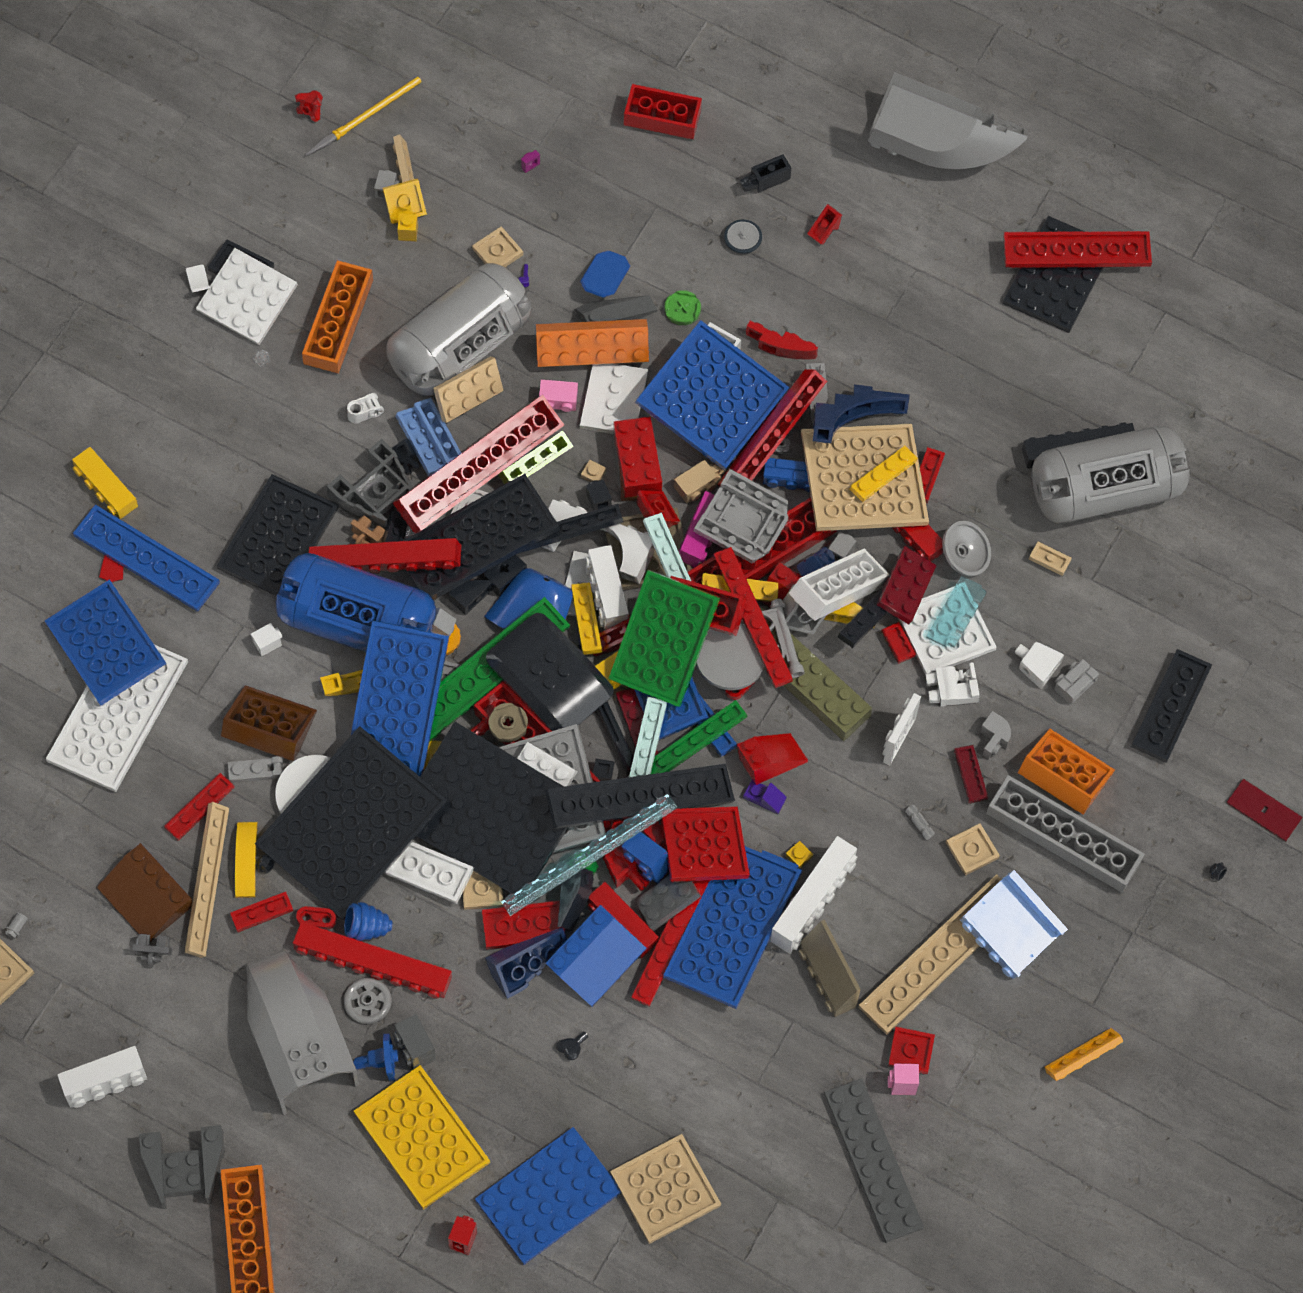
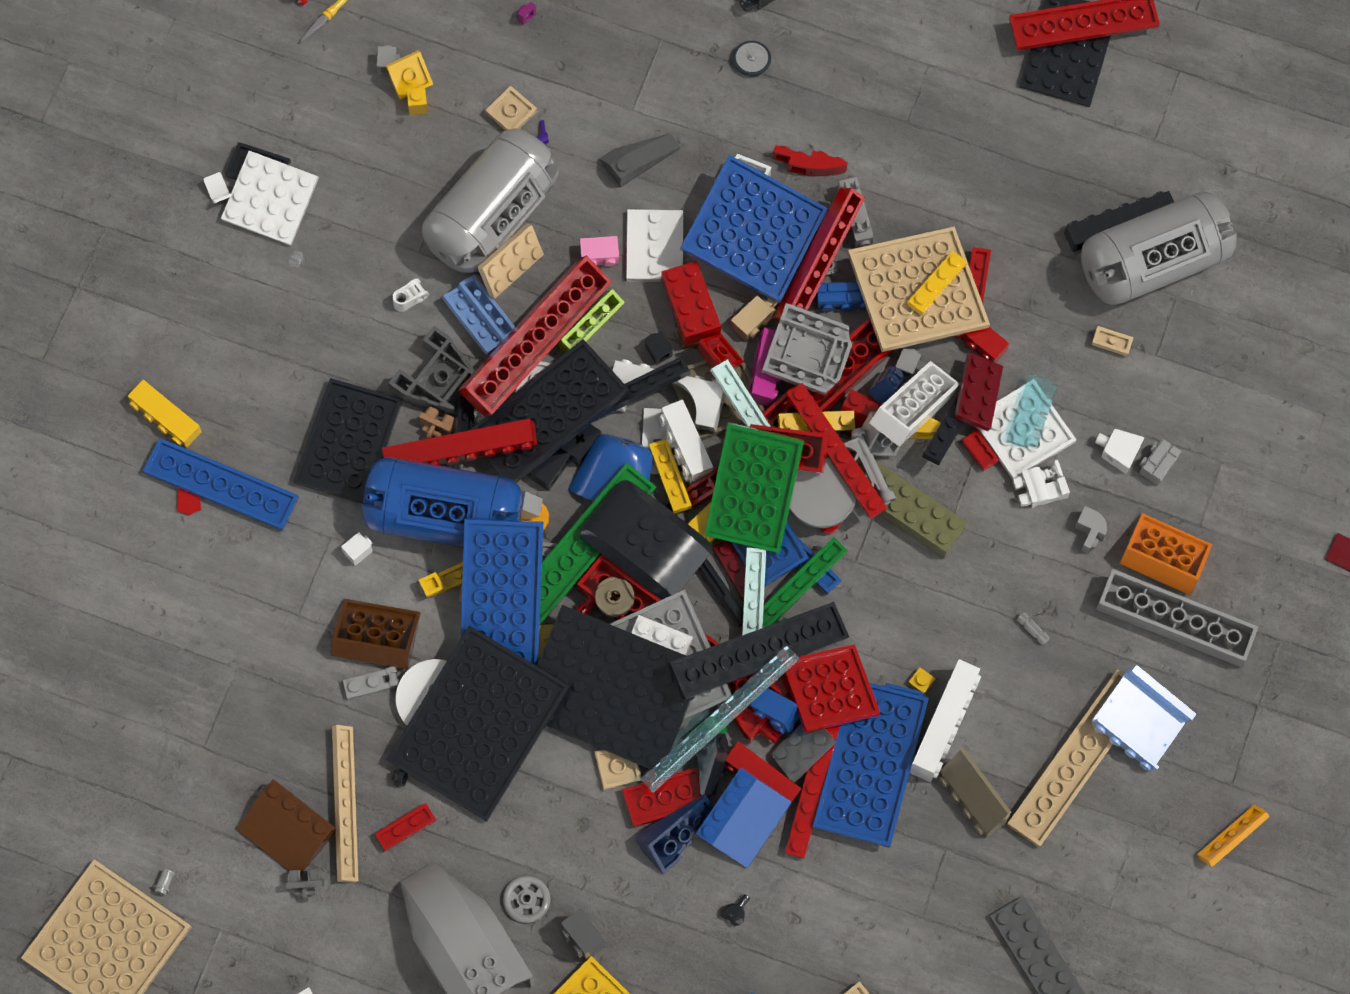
camera: 10 degrees left, 5 degrees up
(105, 642) = (197, 579): blue plate -> none
(106, 738) = (222, 645): white plate -> none
(198, 806) = (322, 730): red tile -> none
(245, 860) = (379, 776): yellow slope -> none
(316, 917) = (460, 824): red plate -> none
(337, 317) = (365, 205): orange brick -> none
(366, 922) = (510, 821): blue piece -> none
(372, 960) = (524, 858): red brick -> none
(380, 1058) = (551, 956): blue piece -> none
(403, 159) = (399, 34): tan plate -> none
(405, 455) = (459, 337): black plate -> none
(431, 872) = (566, 759): white plate -> none
(592, 342) = (624, 193): orange brick -> none
(593, 471) = (648, 324): tan plate -> none
(603, 769) = (715, 627): black plate -> none
(605, 274) = (623, 118): blue shield -> none
(682, 308) = (705, 141): bright green tile -> none
(765, 796) = (876, 627): dark purple slope -> none
(770, 756) = (876, 586): red slope -> none
(825, 224) = (831, 34): red slope -> none
(863, 402) = (887, 220): dark blue arch -> none
(902, 726) = (999, 539): white plate -> none
(904, 1079) = (1065, 891): bright pink brick -> none
(911, 1048) = (1066, 859): red plate -> none
(966, 548) = (1030, 344): light grey dish -> none
(971, 774) = (1074, 572): dark red plate -> none
(972, 849) = (1089, 647): tan plate -> none
(1171, 705) = (1256, 471): black plate -> none
(1218, 871) = (1329, 630): black plate -> none

